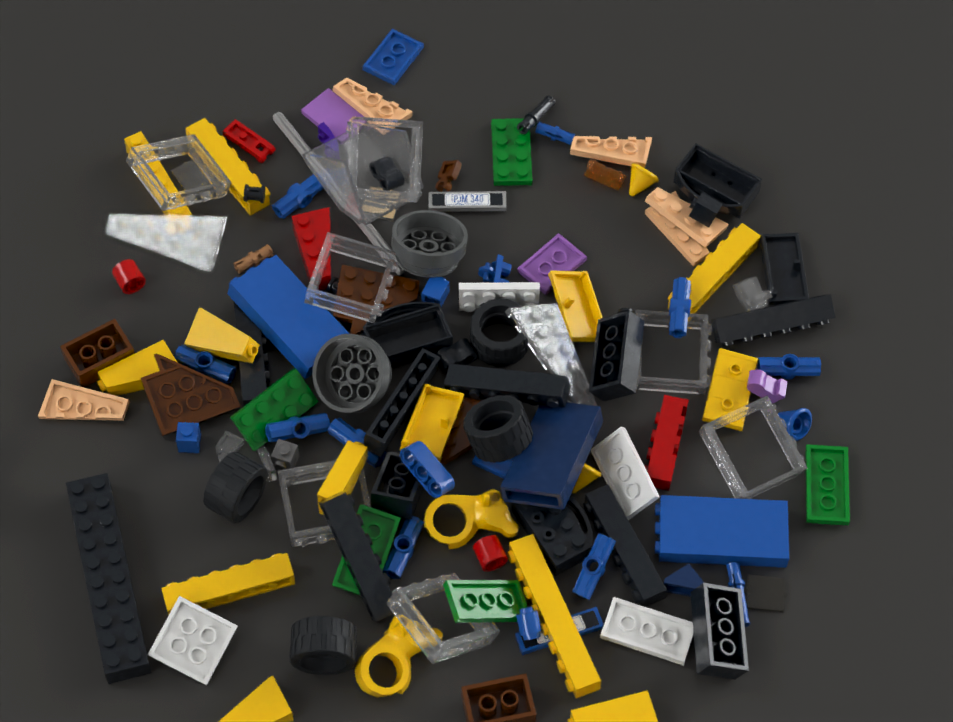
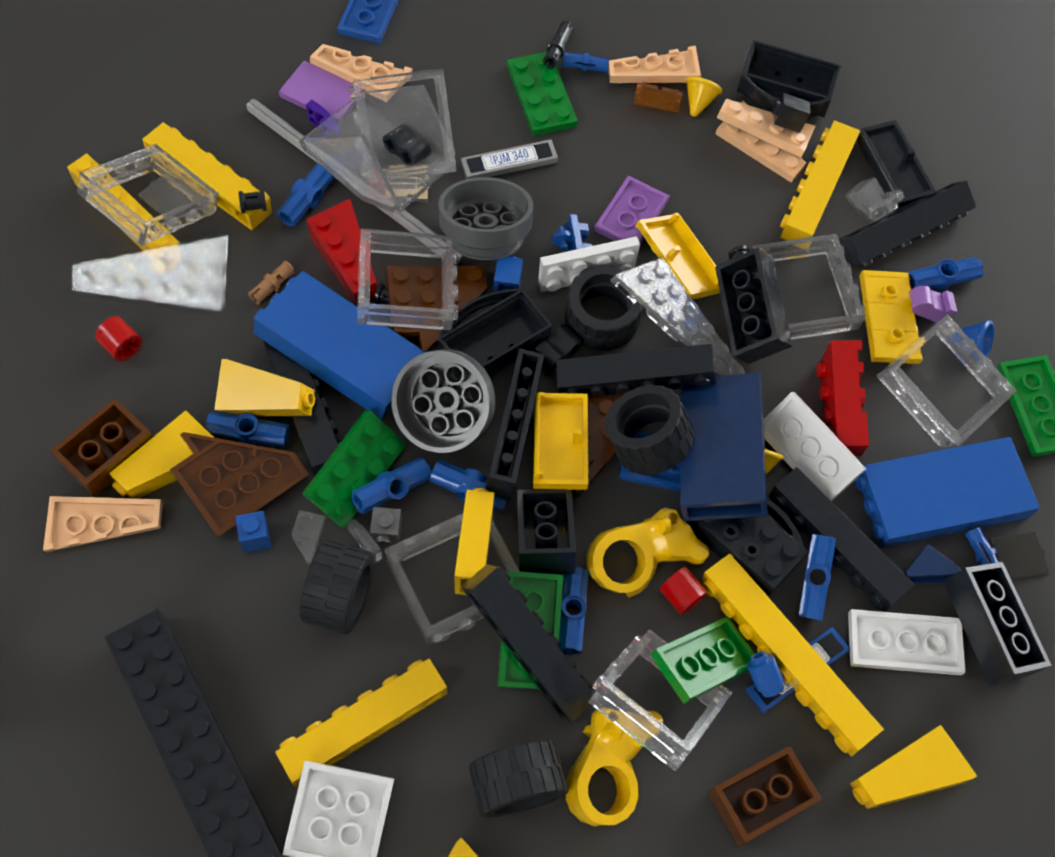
camera: 20 degrees left, 5 degrees up
(248, 140) = (225, 140): red plate -> none
(427, 469) = (579, 504): blue beam -> none
(448, 172) = (476, 131): reddish brown plate -> none
(679, 307) = (805, 232): blue piece -> none

